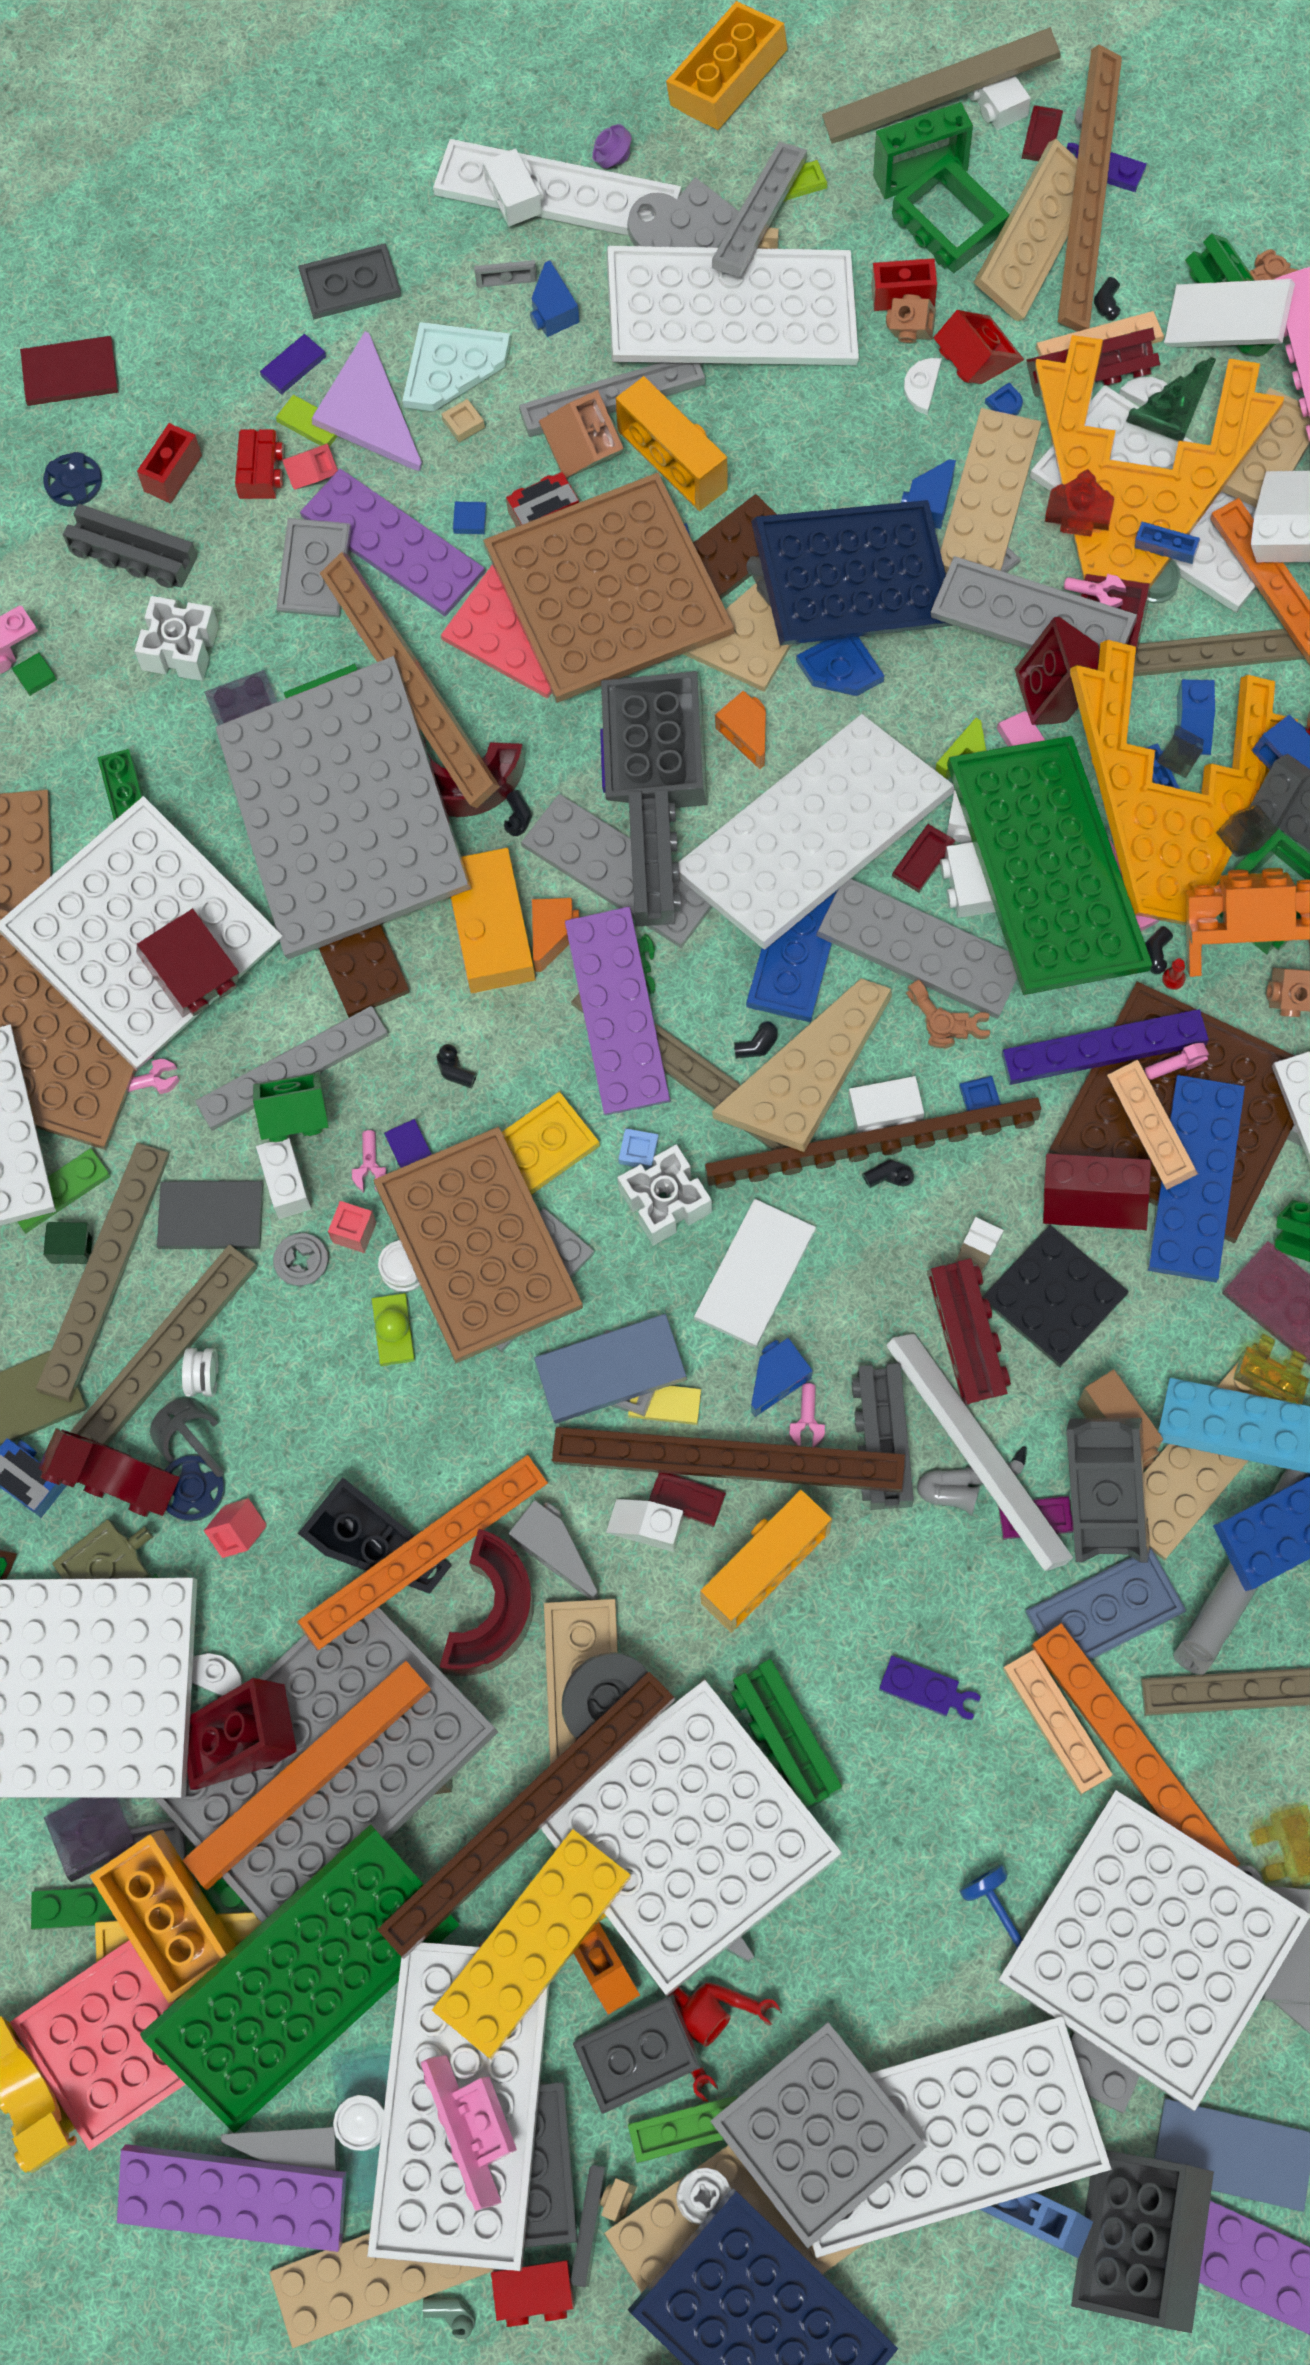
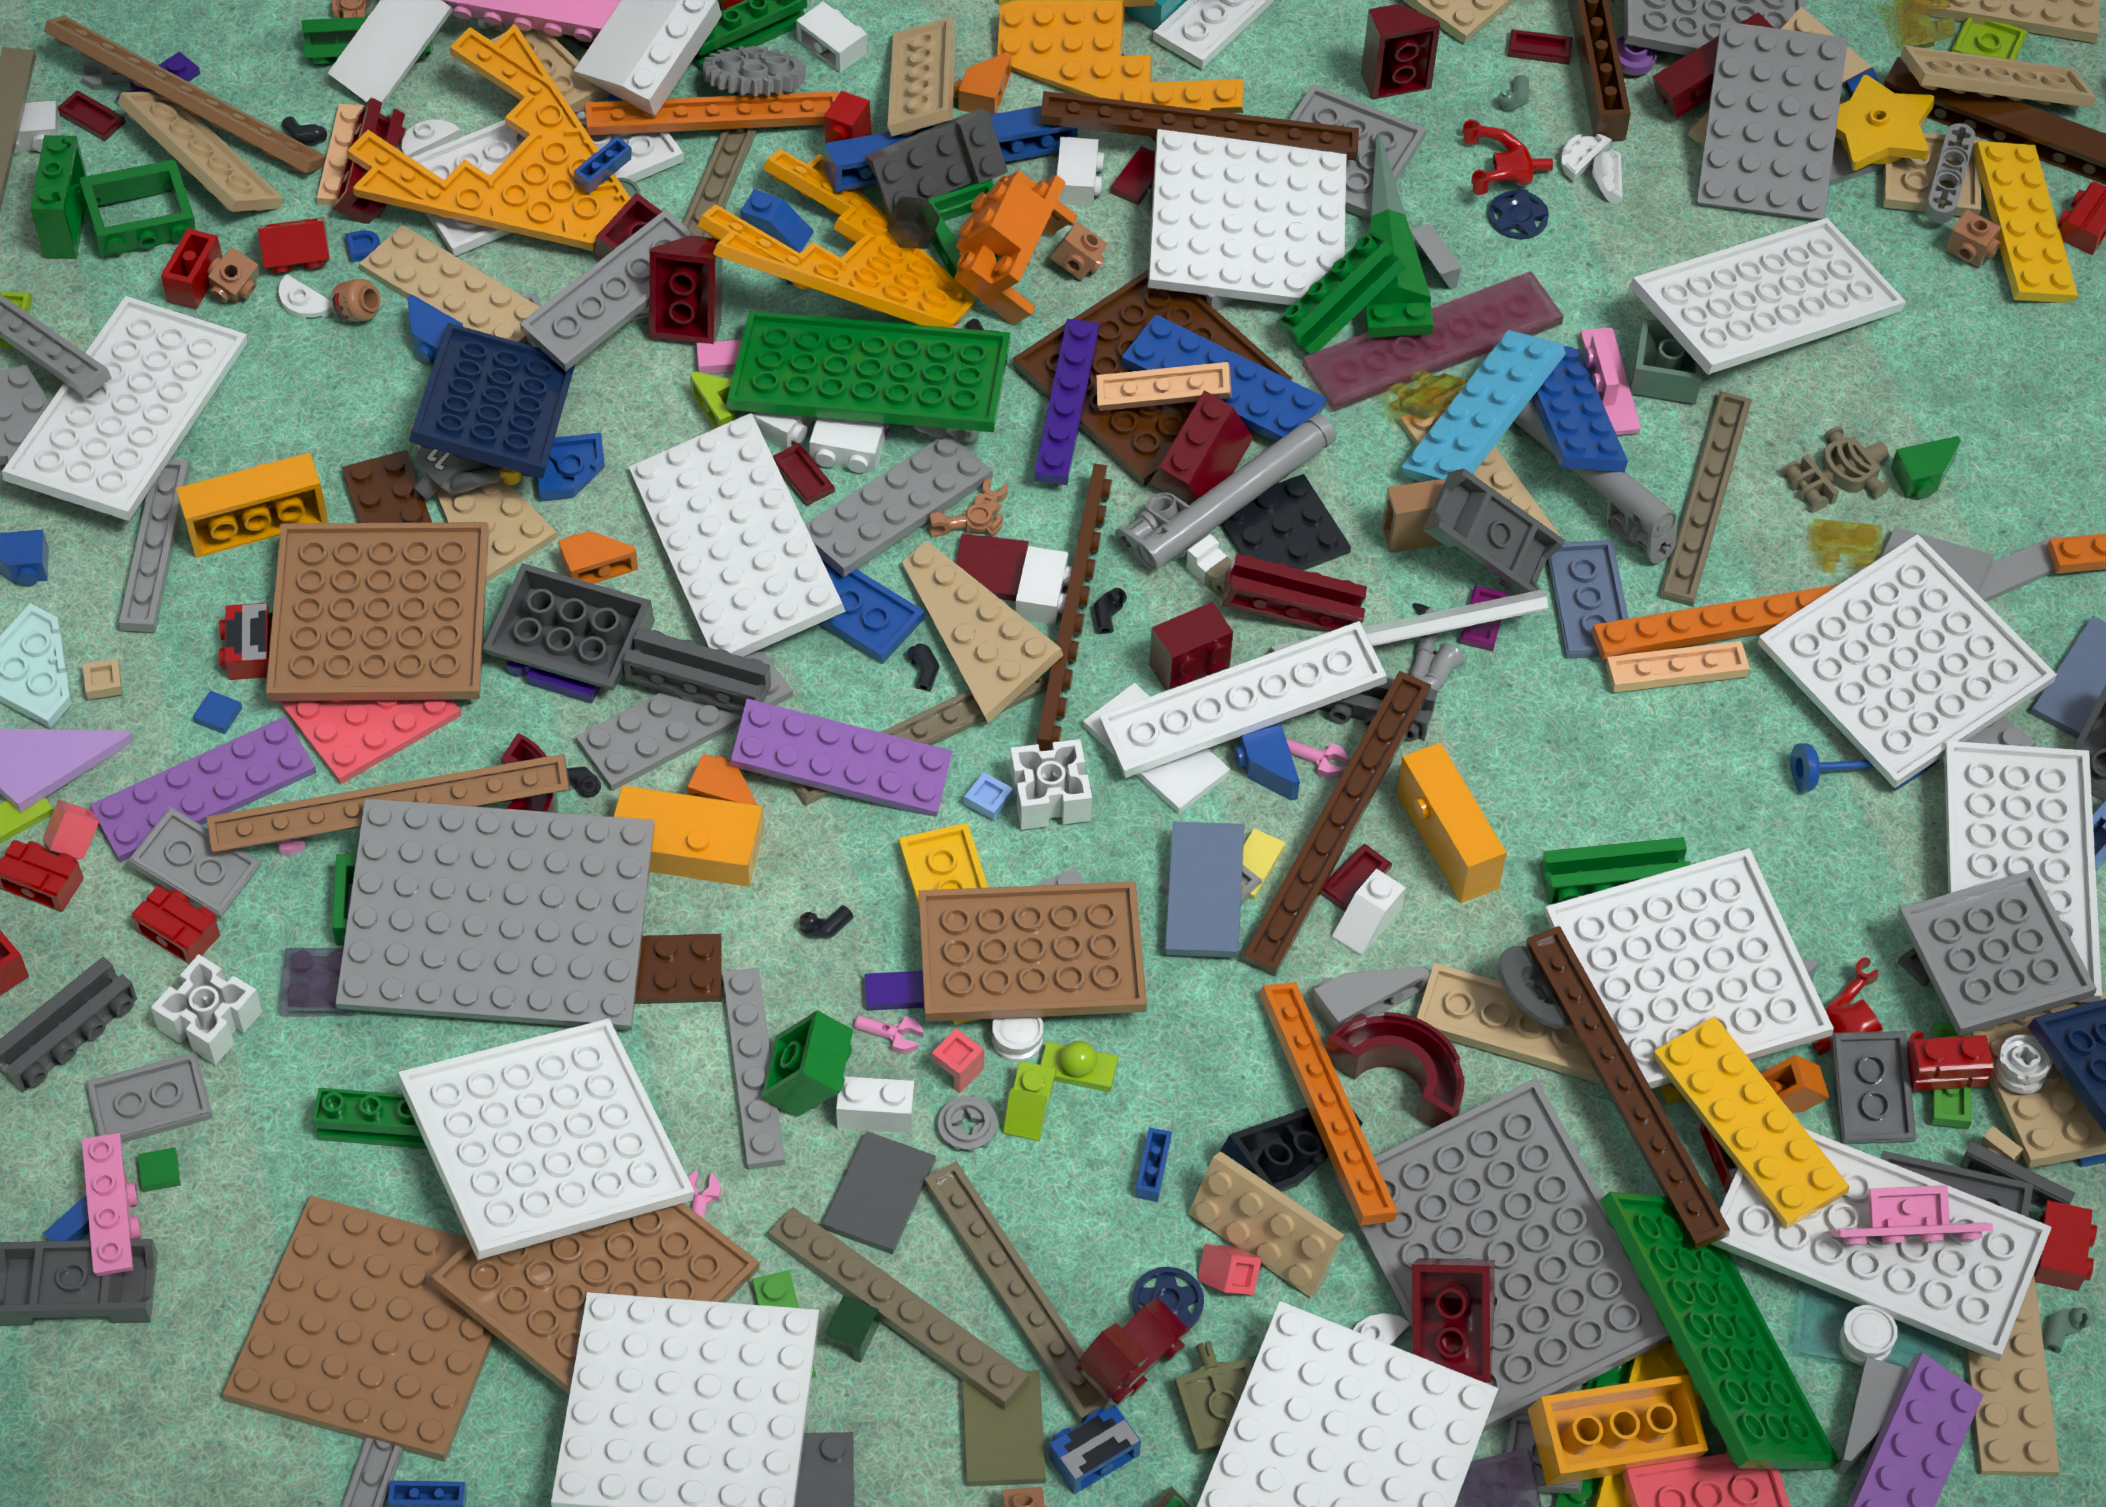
camera: 75 degrees left, 15 degrees down
(91, 638) = (150, 1098): none -> light grey tile
(163, 1428) = (1111, 1307): dark grey helmet -> none
(188, 963) = (609, 1096): dark red brick -> none
(200, 1372) = (1052, 1244): white wheel -> none
(251, 581) = (176, 924): none -> red brick
(278, 1541) = (1266, 1224): none -> tan plate
(306, 1775) = (1519, 1261): orange tile -> none
(316, 1427) = (1153, 1164): none -> blue piece
(339, 1301) = (1029, 1101): none -> lime slope
(581, 434) = (193, 575): nougat slope -> none
(680, 2121) = (1949, 1062): none -> red brick
(823, 1328) = (1242, 699): none -> white plate
(861, 1261) = (1190, 646): none -> dark red brick
(895, 1053) = (993, 562): none -> dark red tile
(925, 1688) = (1609, 755): dark purple plate -> none
(932, 422) = (355, 301): none -> nougat head
(979, 1093) = (1063, 516): blue tile -> none
(1001, 1194) = (1173, 525): none -> light grey piece
(1080, 506) = (528, 210): clear red plate -> none
(1098, 589) = (619, 231): bright pink bar -> none
(1174, 407) = (453, 117): clear green wing -> none
(1174, 977) = (1019, 334): red piece -> none
(1181, 751) = (809, 233): clear smoke panel -> none
(1189, 1058) = (1110, 347): bright pink bar -> none

